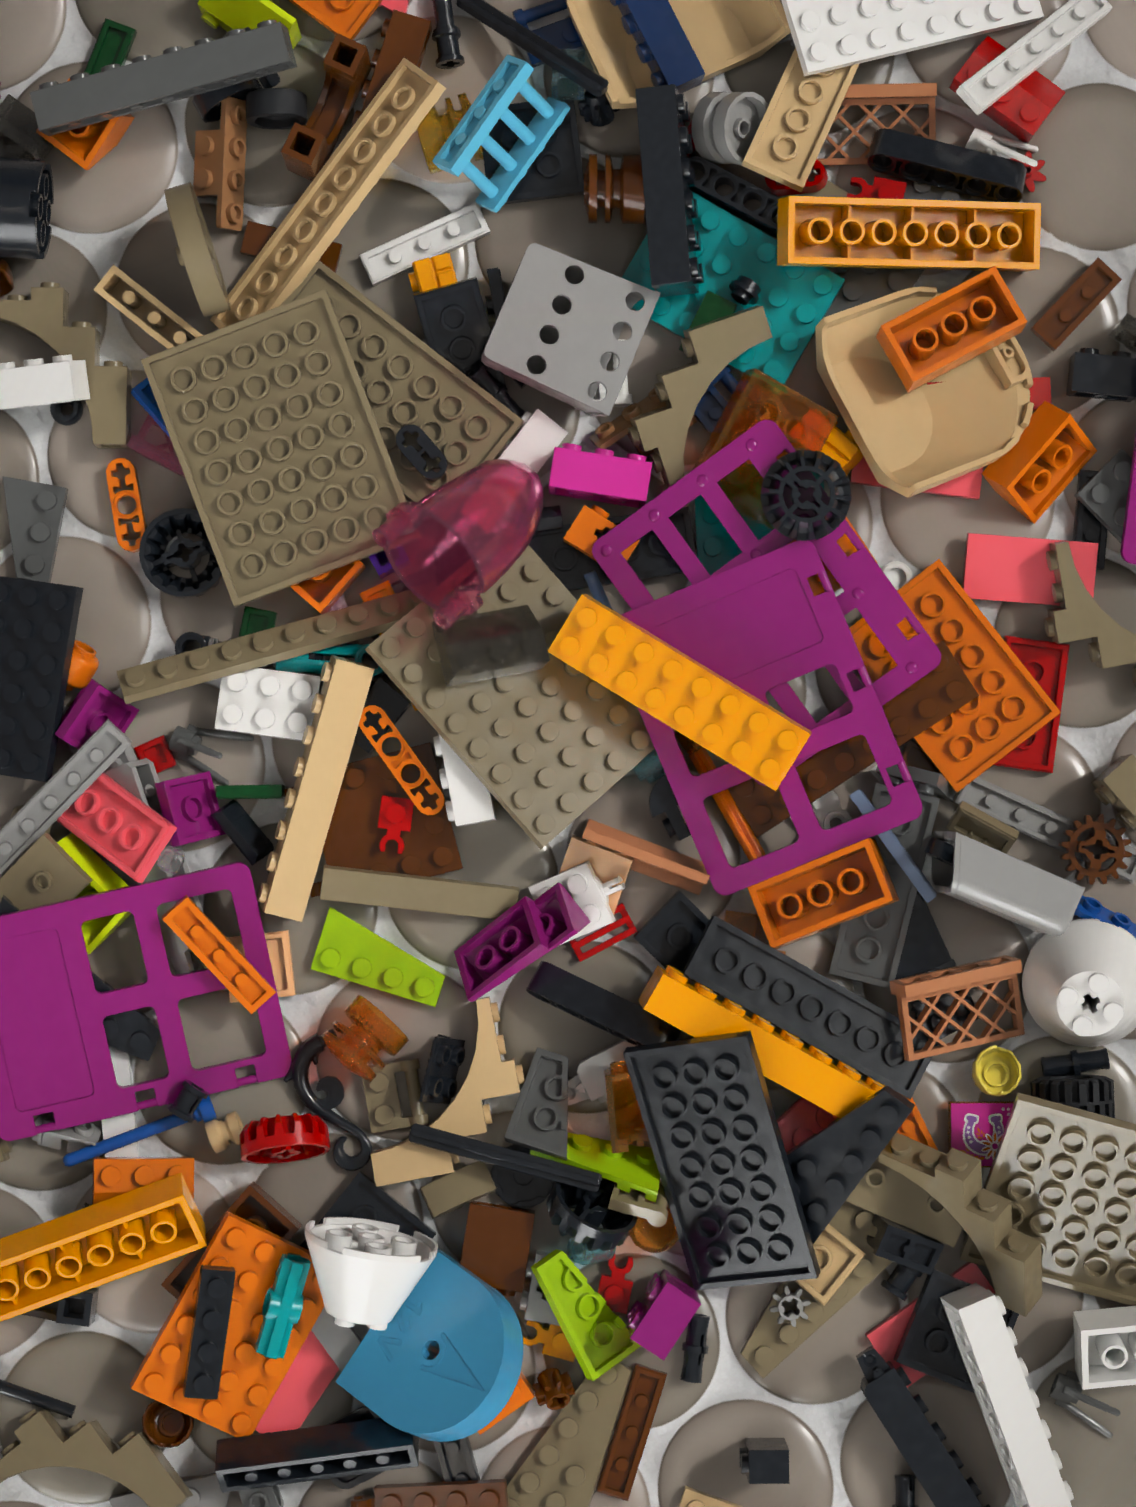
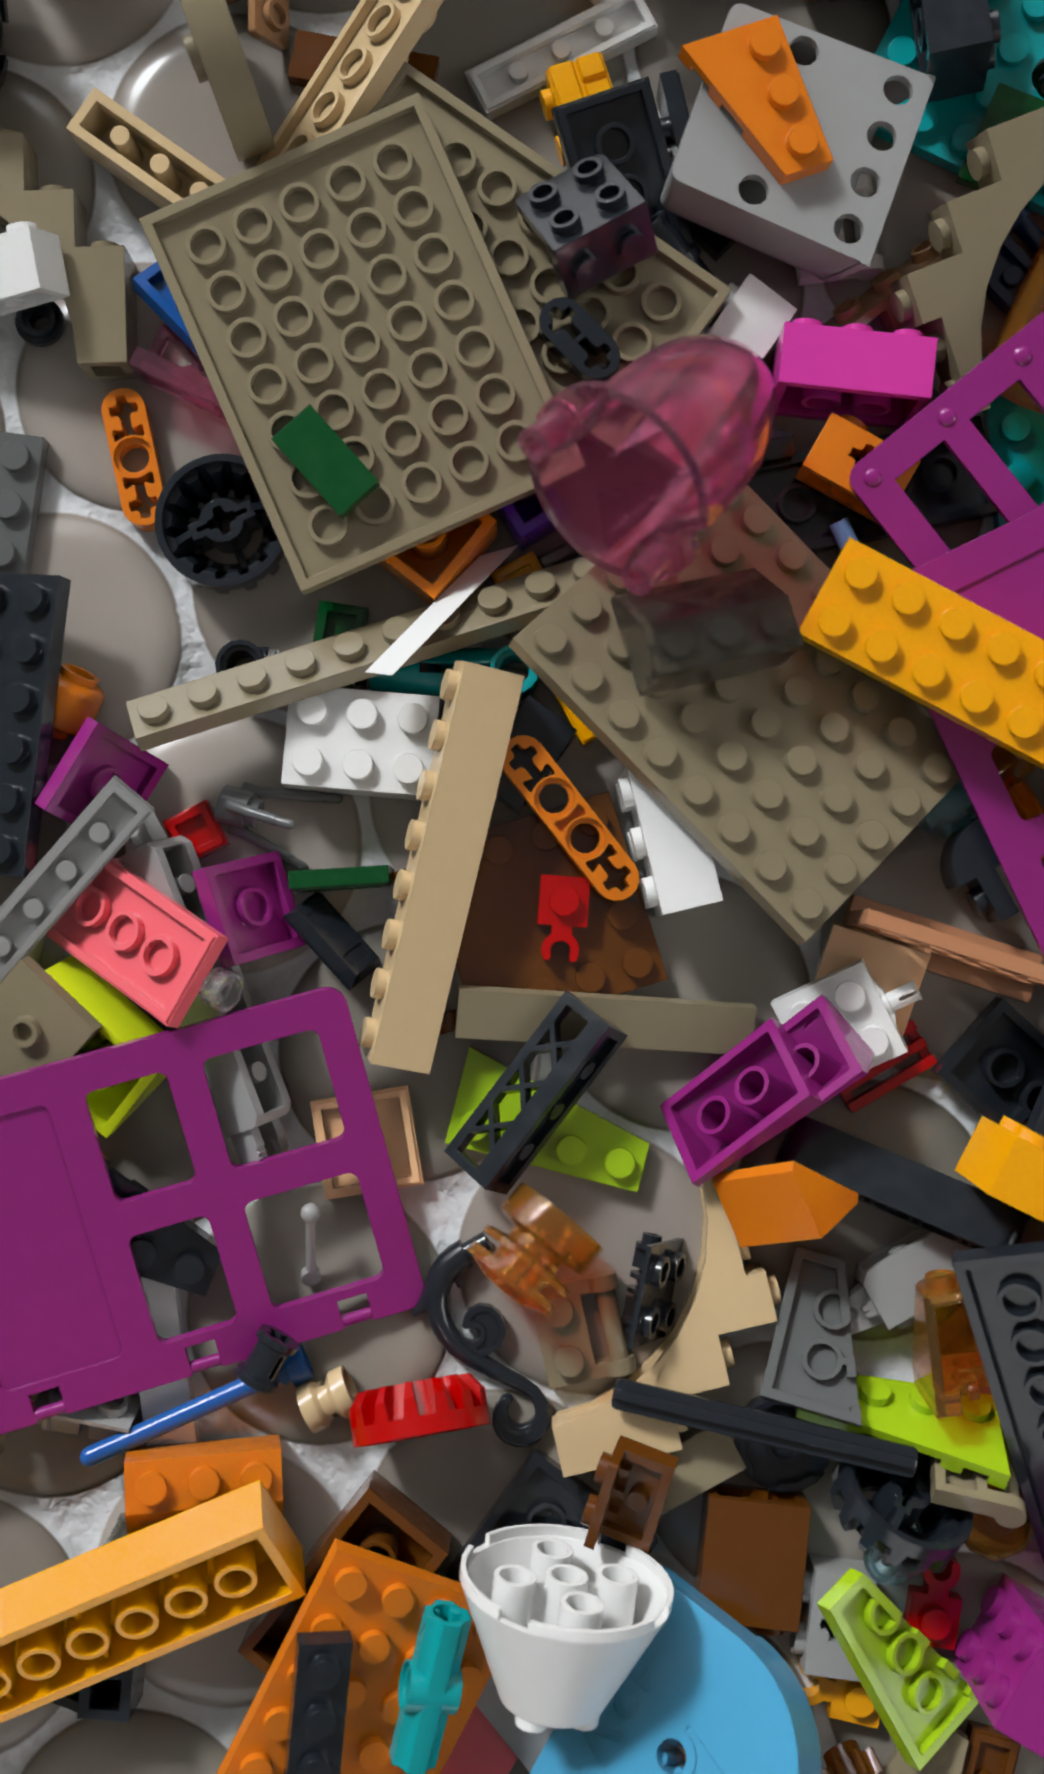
camera: 10 degrees right, 0 degrees up
(218, 954) = (302, 1131): orange plate -> none
(218, 1051) = (310, 1273): none -> light grey hinge
(254, 525) = (326, 461): none -> dark green tile
(323, 621) = (438, 612): none -> white sticker
(377, 946) = (549, 1104): none -> black fence
(416, 1197) = (631, 1494): none -> reddish brown bracket
(430, 376) = (589, 223): none -> black bracket
(523, 1013) = (781, 1203): none -> orange slope
(545, 305) = (762, 89): none -> orange wing

